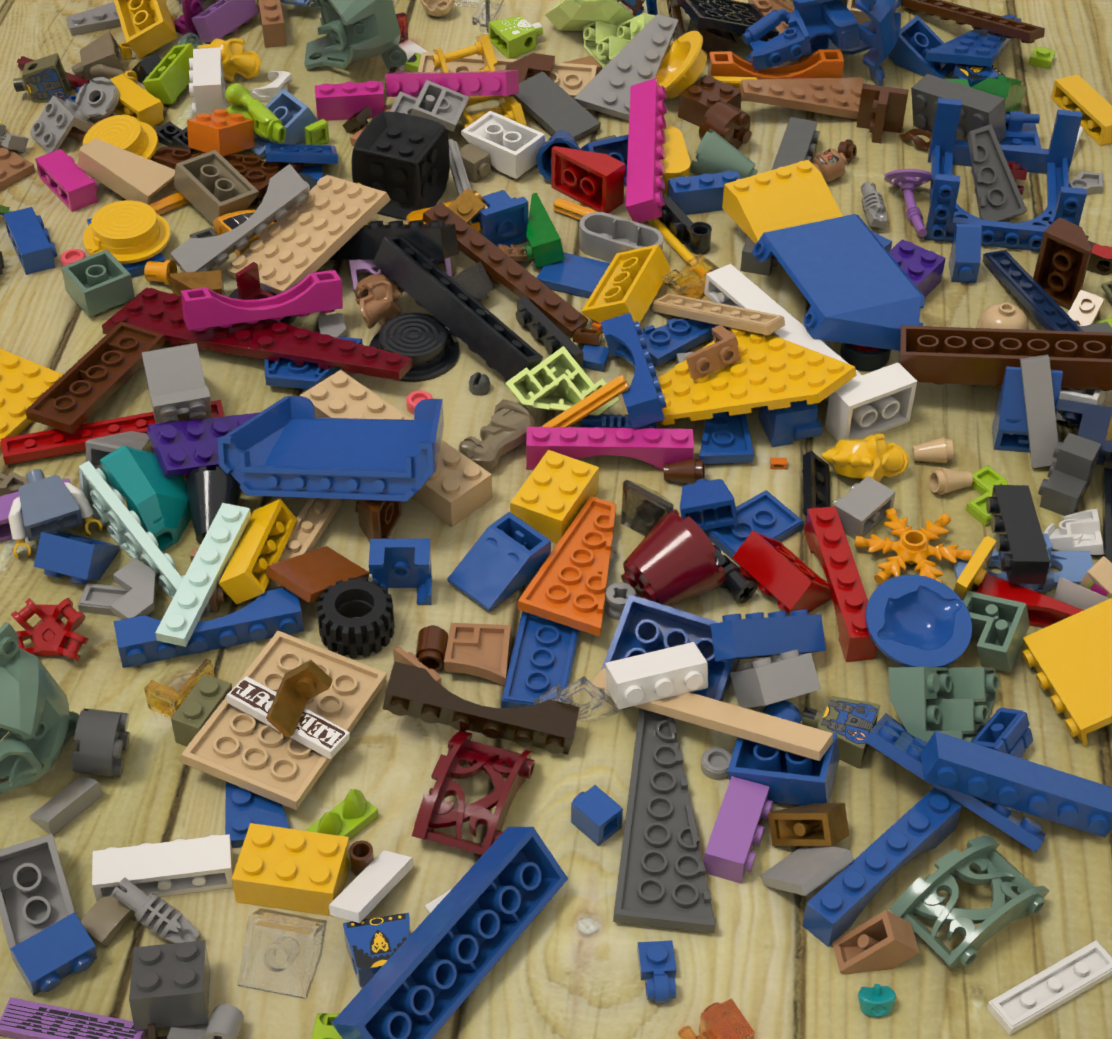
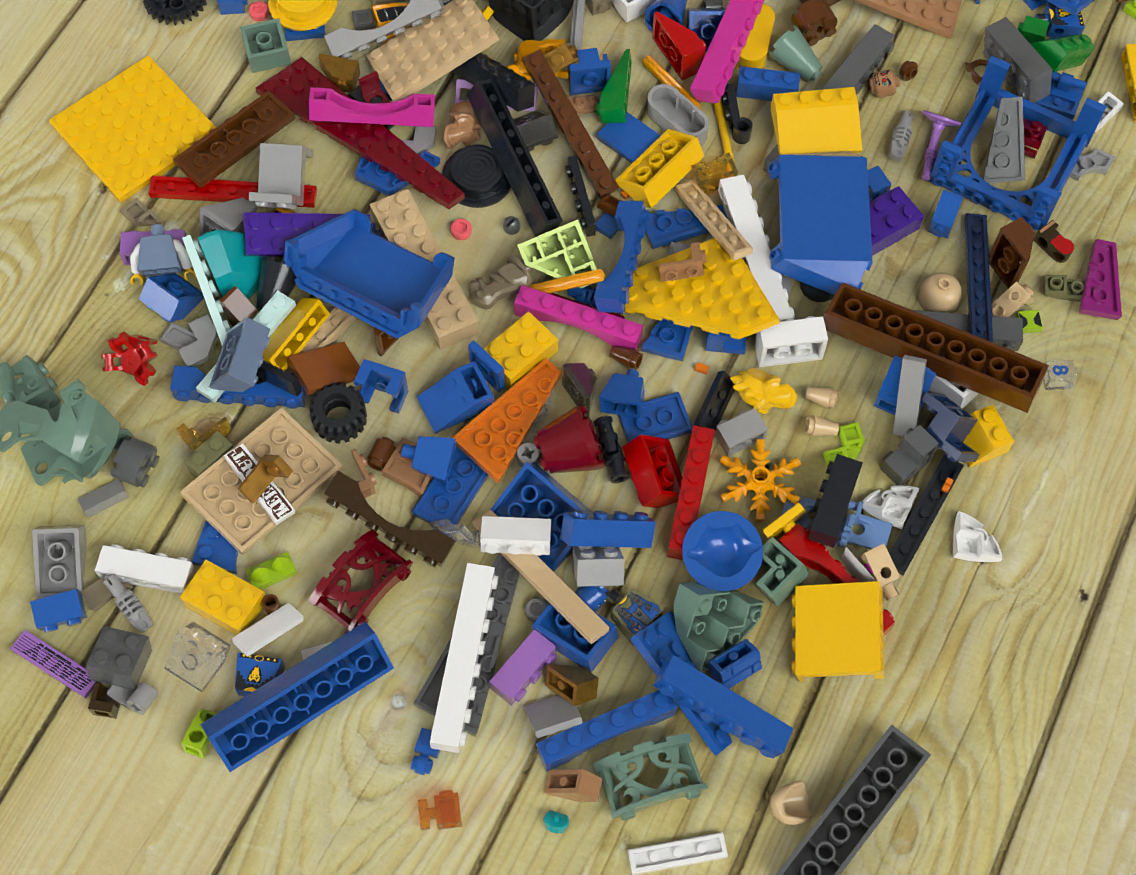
camera: 20 degrees right, 20 degrees up
(160, 271) = (316, 44): light orange bush -> none
(175, 535) = (237, 306): none -> slope
(207, 574) = (240, 356): none -> sand blue slope
(255, 590) = (279, 378): none -> black tile
(504, 624) = (432, 456): none -> blue torso
(527, 508) = (489, 367): none -> blue tile
(596, 815) = (435, 624): blue brick -> none
(658, 839) = (463, 657): none -> white brick
(882, 110) = (956, 37): reddish brown bracket -> none

